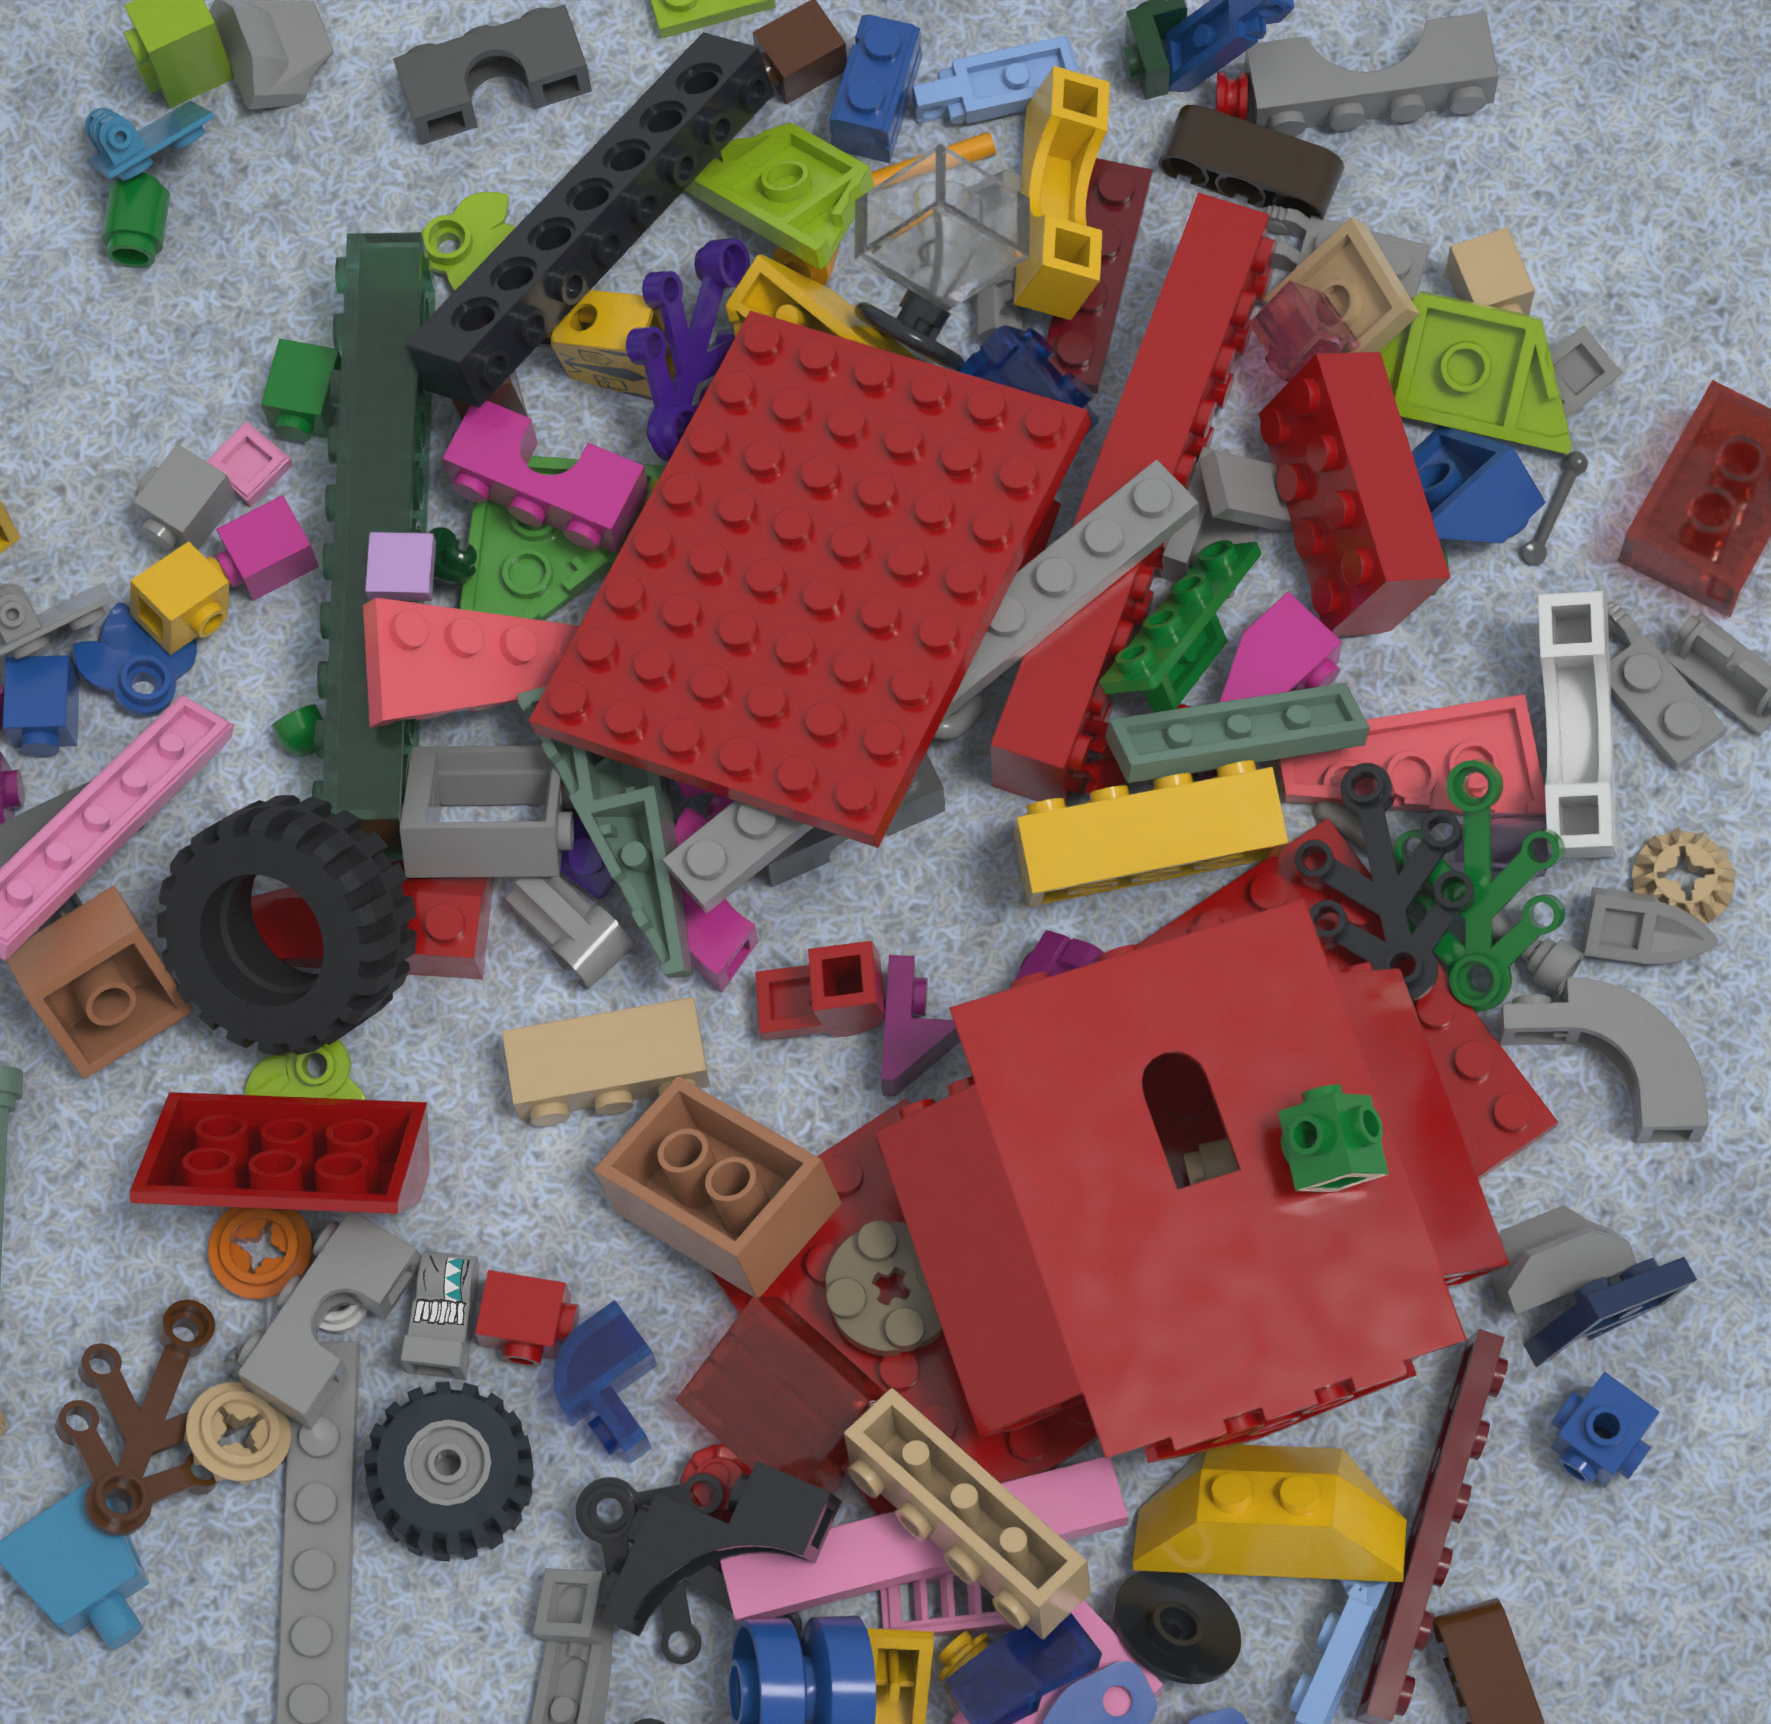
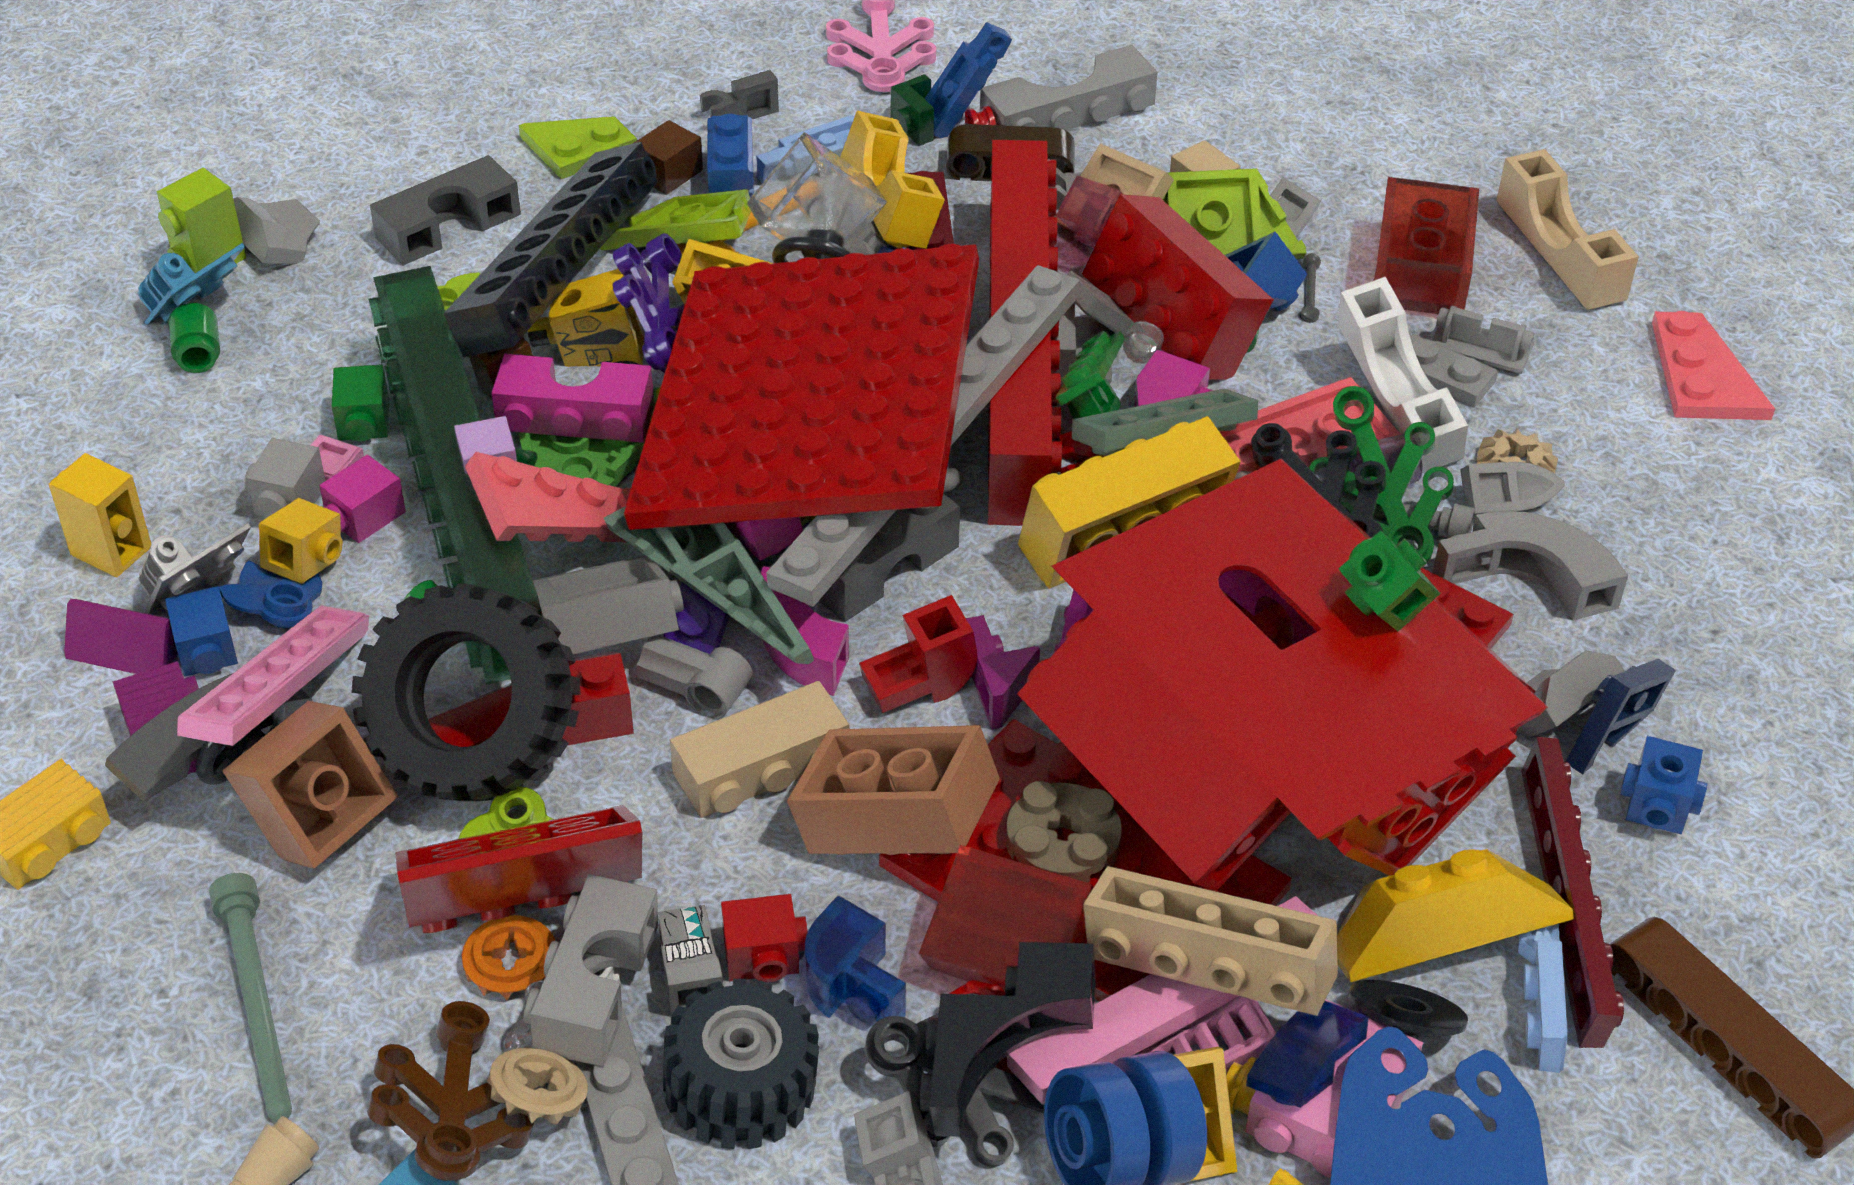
camera: 25 degrees left, 25 degrees down
(1275, 574) = (1142, 341): none -> clear hinge

